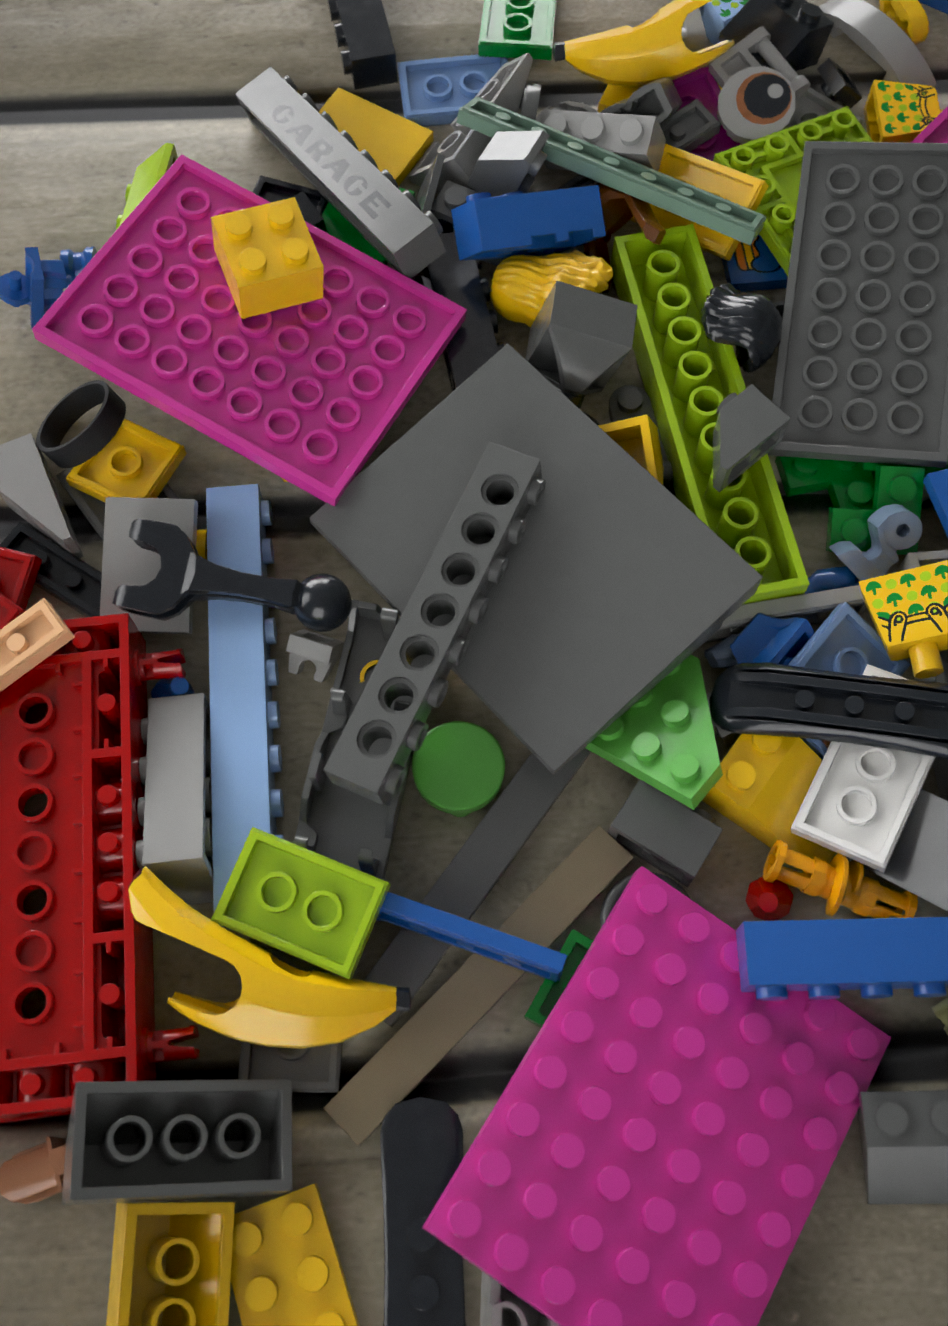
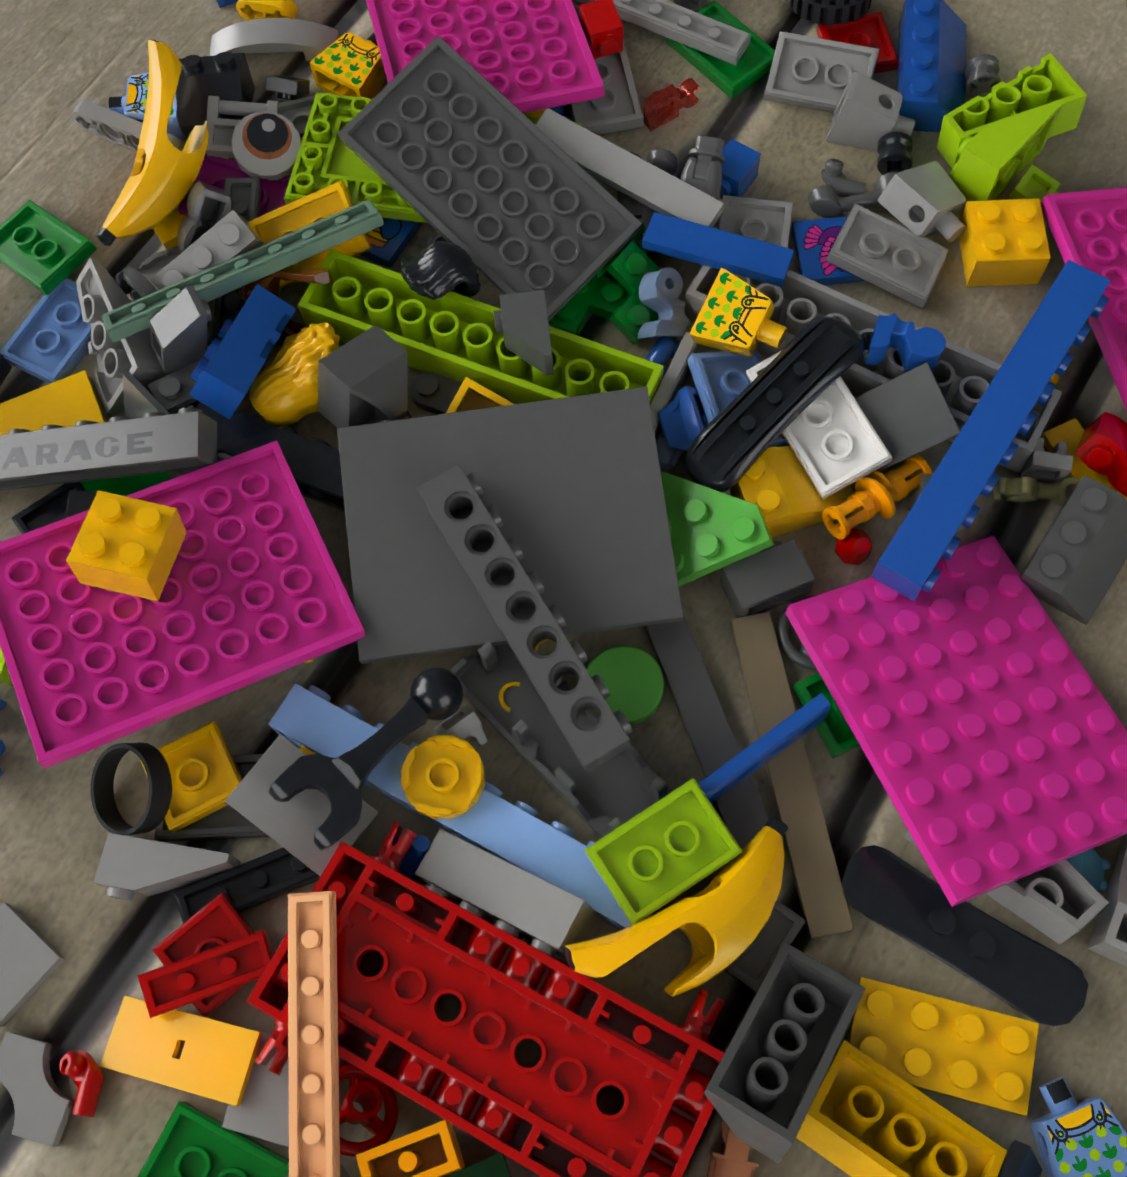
camera: 50 degrees left, 0 degrees up
(251, 662) = (443, 777): none -> yellow tile

